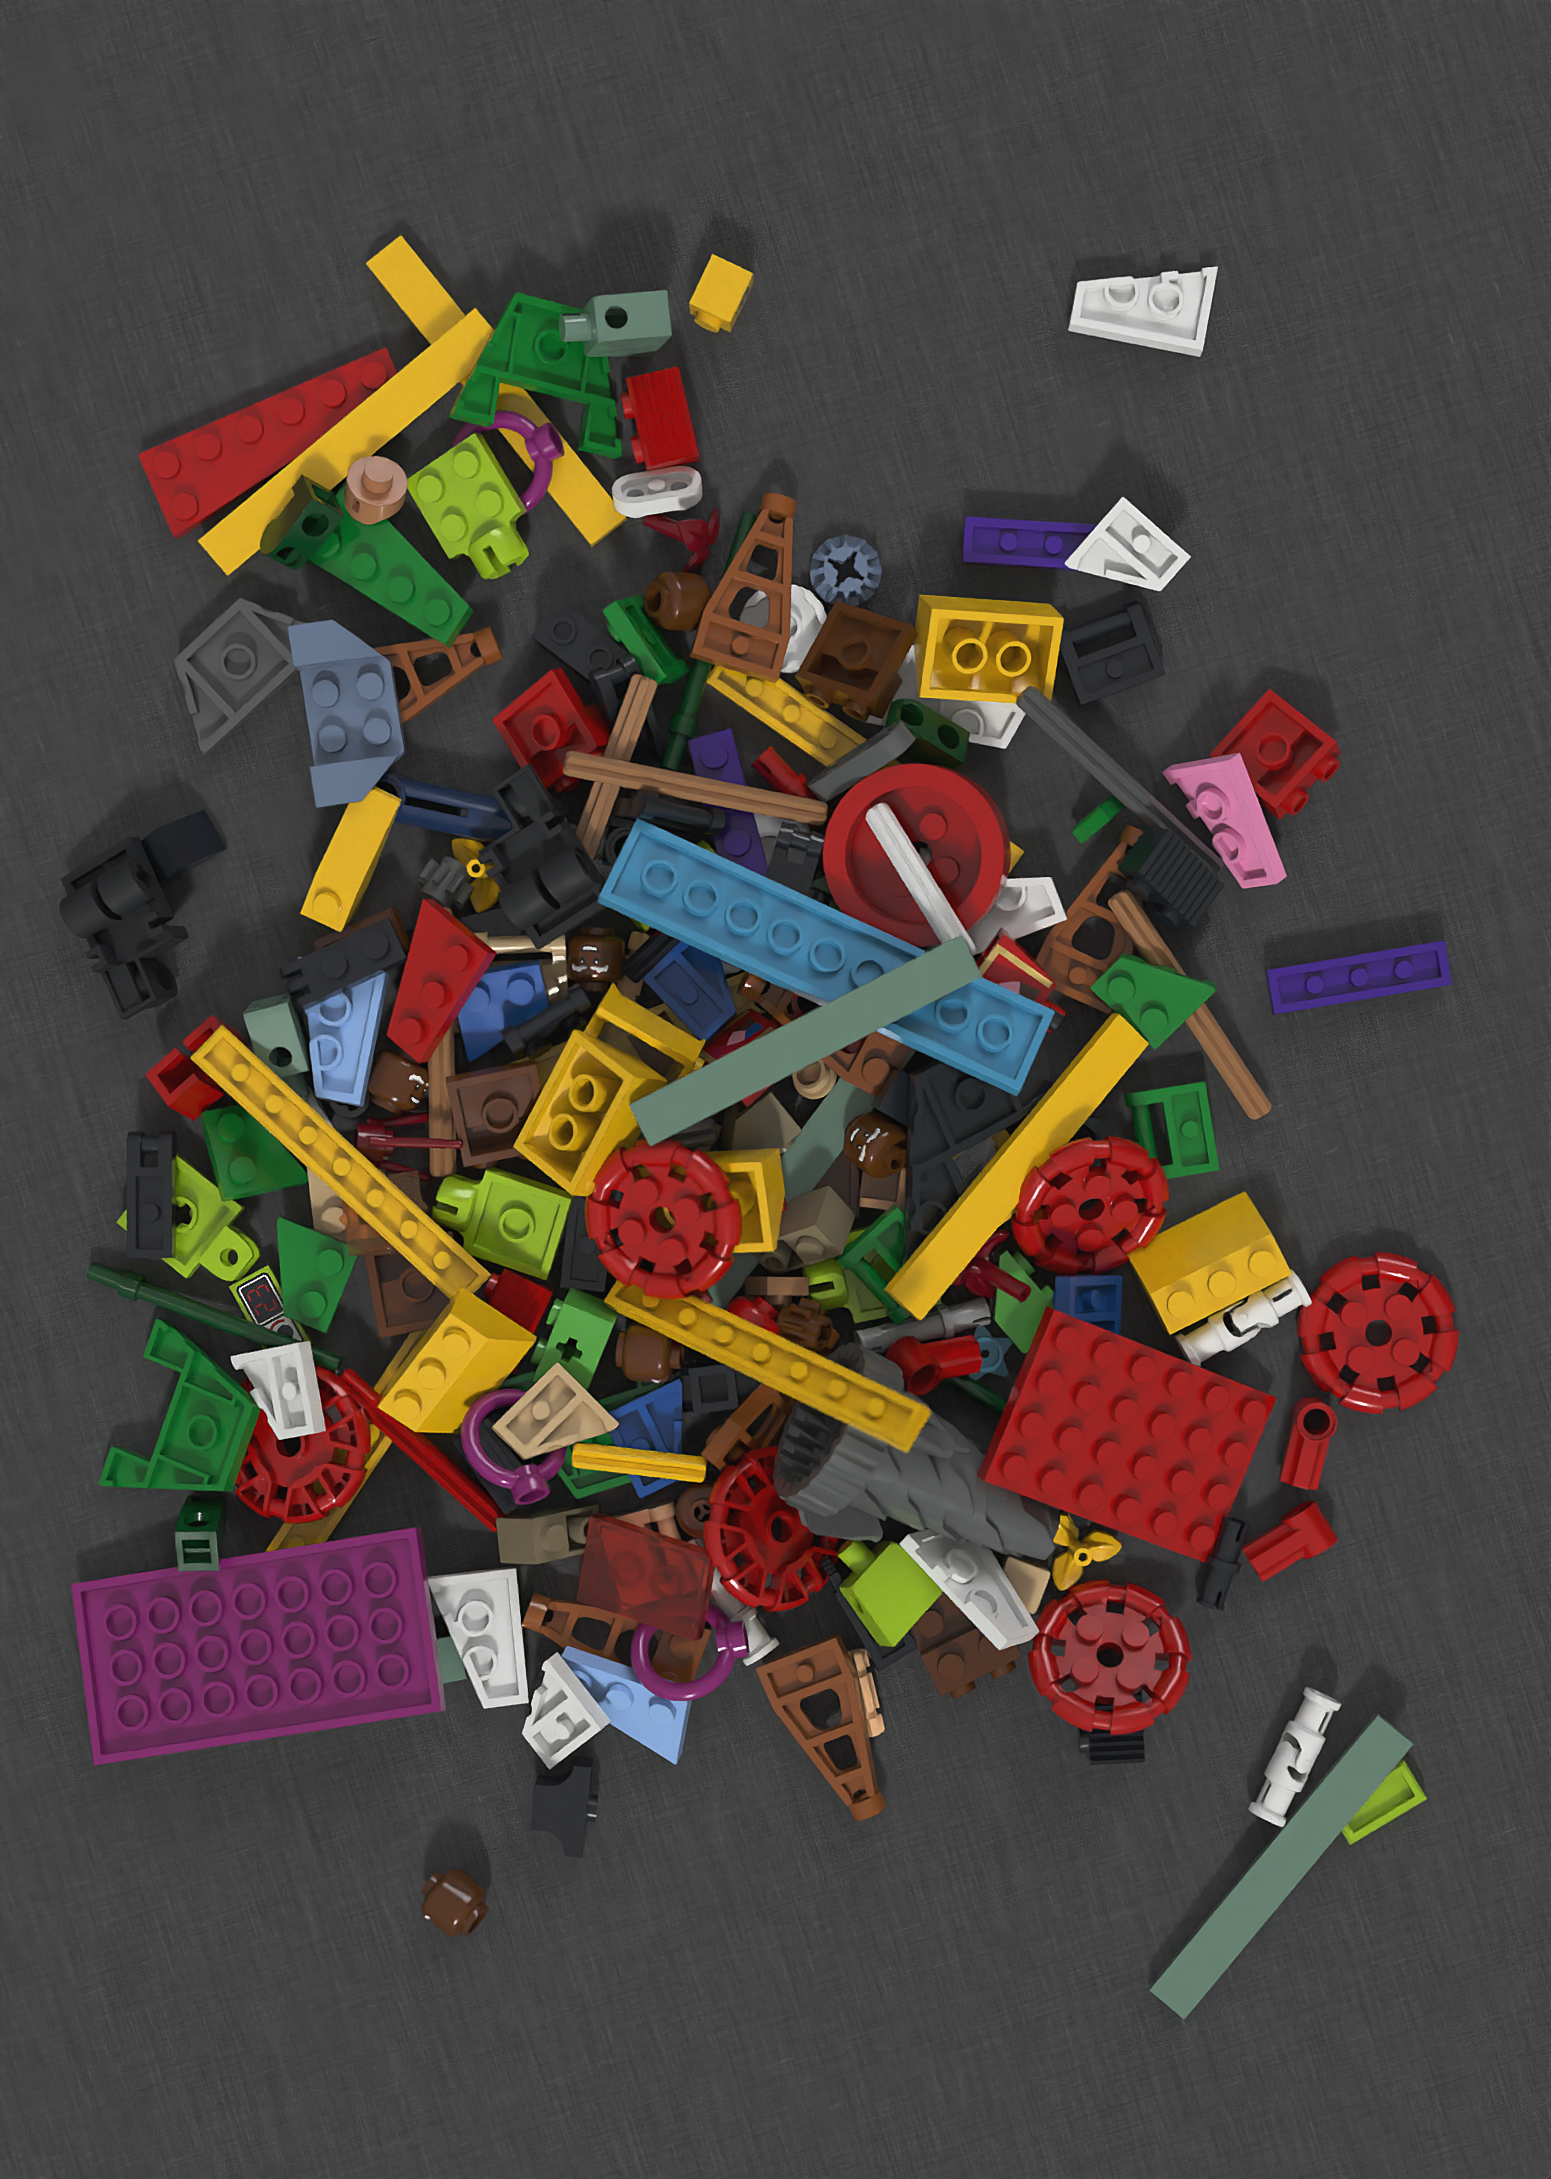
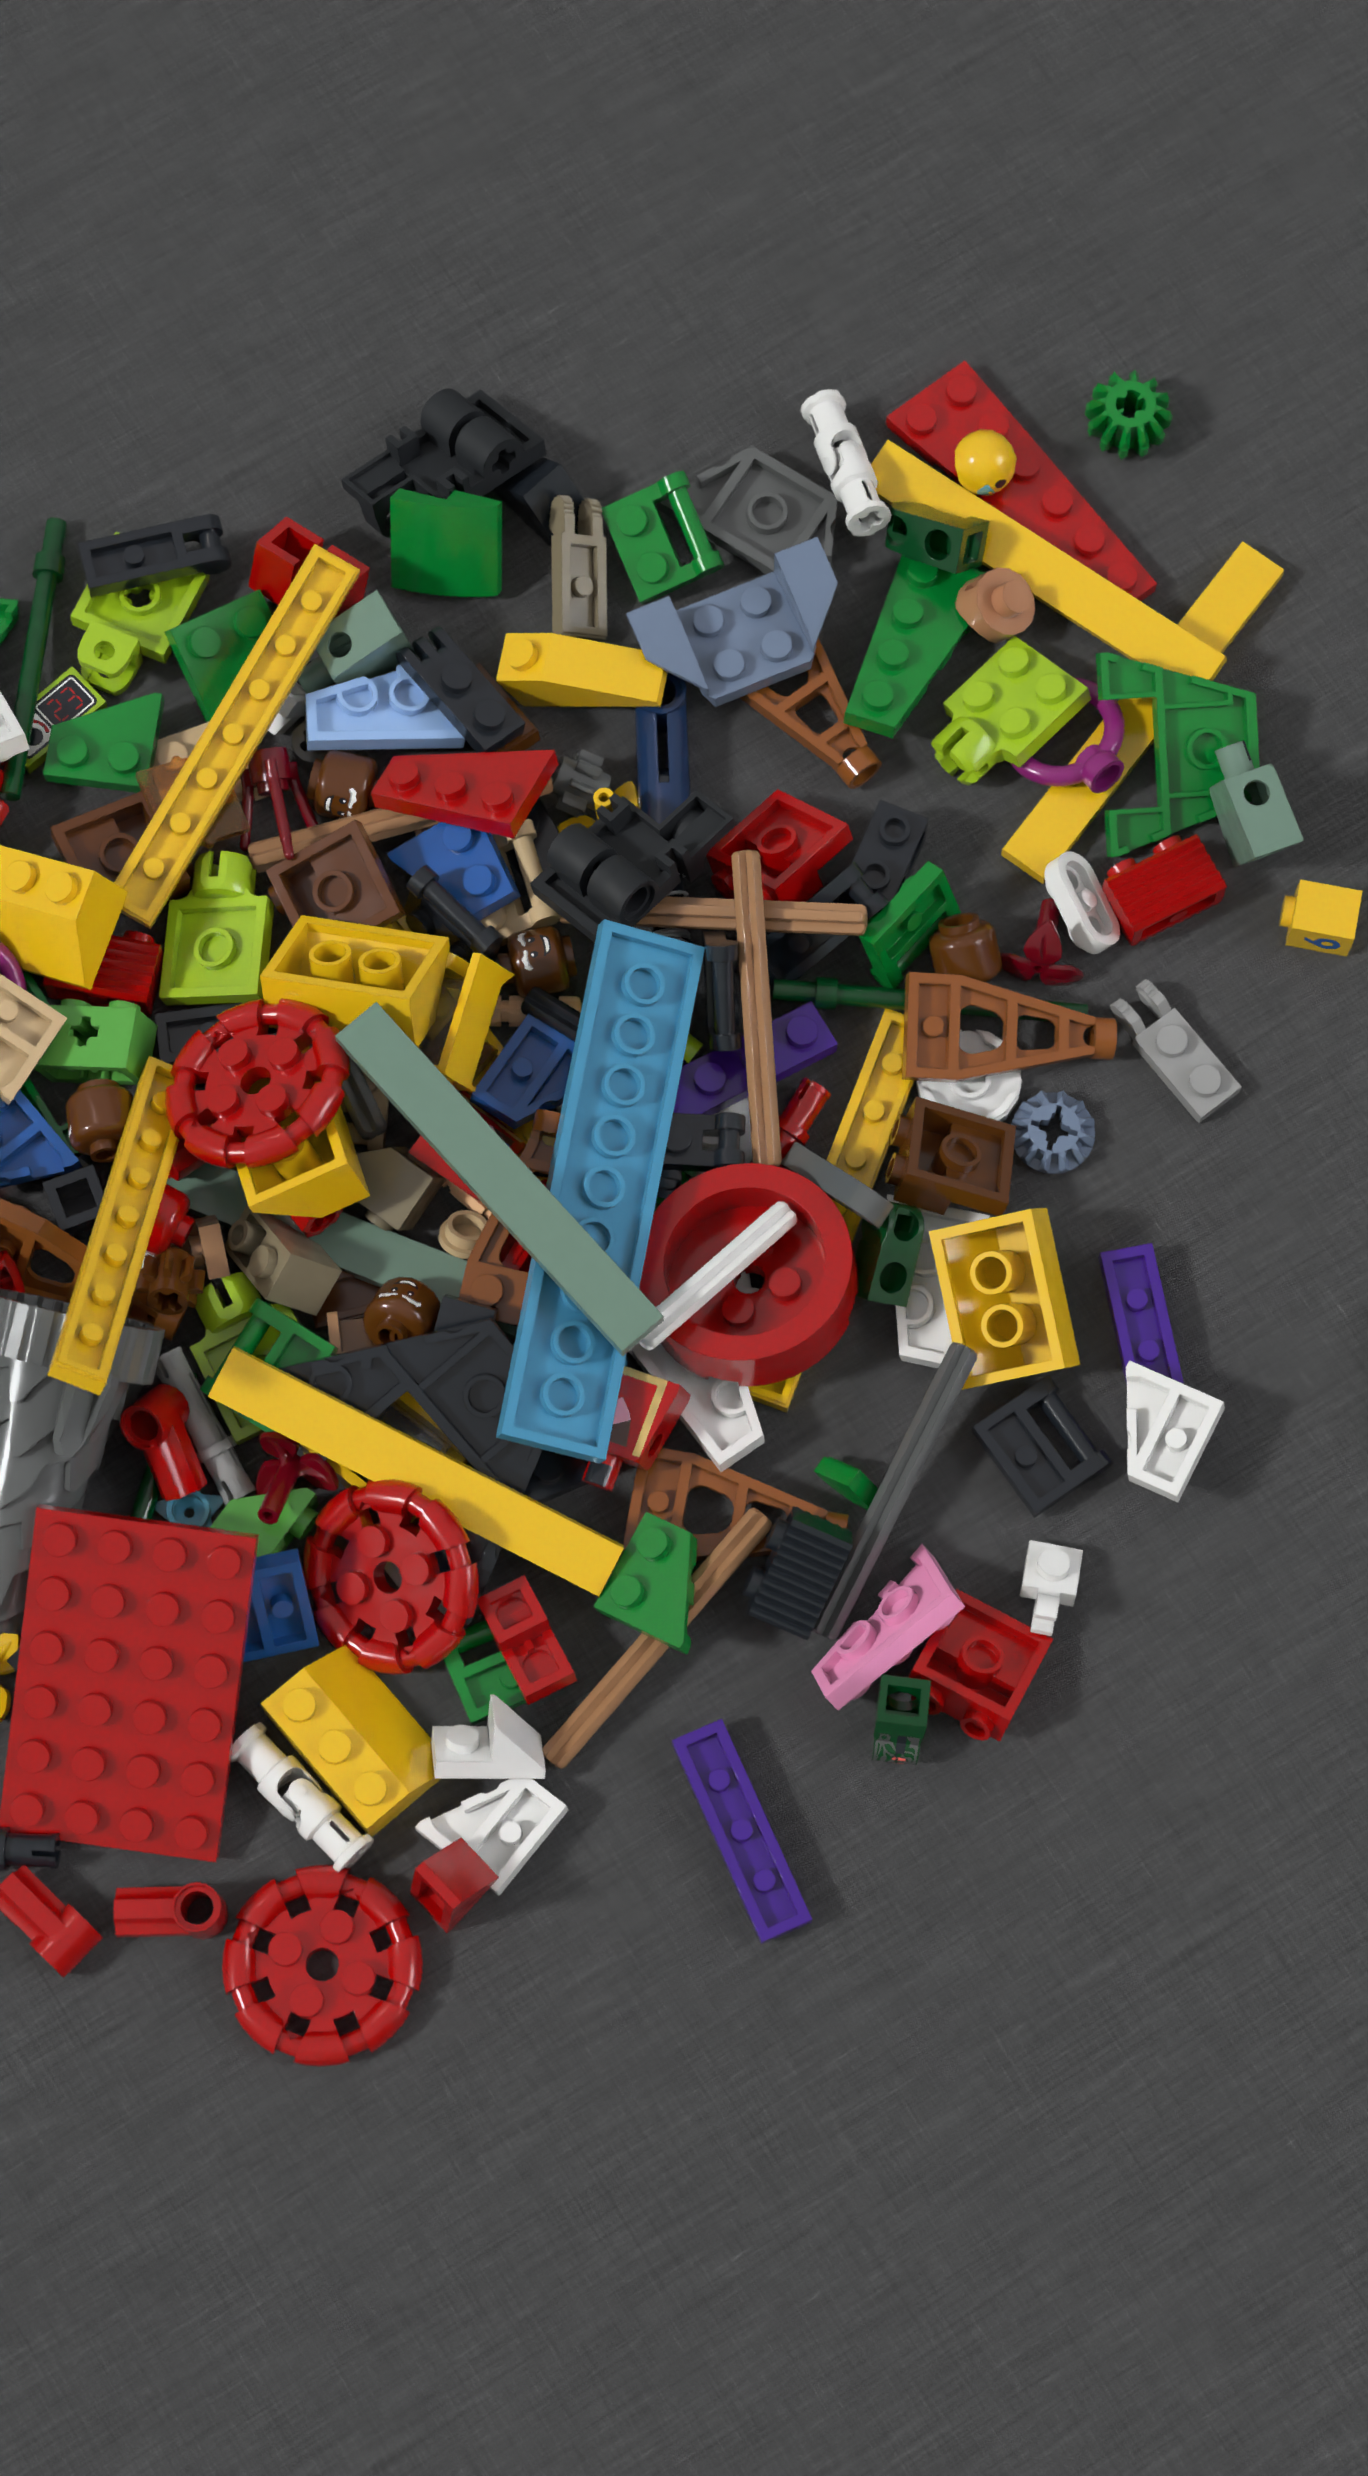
camera: 75 degrees right, 15 degrees down
(205, 944) = (446, 544): none -> green slope
(212, 582) = (845, 462): none -> white piece
(219, 311) = (1134, 397): none -> green gear
(240, 772) = (646, 542): none -> green plate
(244, 463) = (984, 462): none -> yellow piece
(251, 836) = (578, 569): none -> dark tan hinge
(805, 449) = (1177, 1054): none -> light grey hinge
(1168, 1110) = (526, 1640): none -> red slope
(1220, 676) = (1051, 1579): none -> white plate
(1247, 1160) = (496, 1751): none -> white slope
(1307, 1171) = (499, 1826): none -> white wing
(1310, 828) = (900, 1723): none -> dark green leg
(1346, 1214) = (451, 1883): none -> red slope

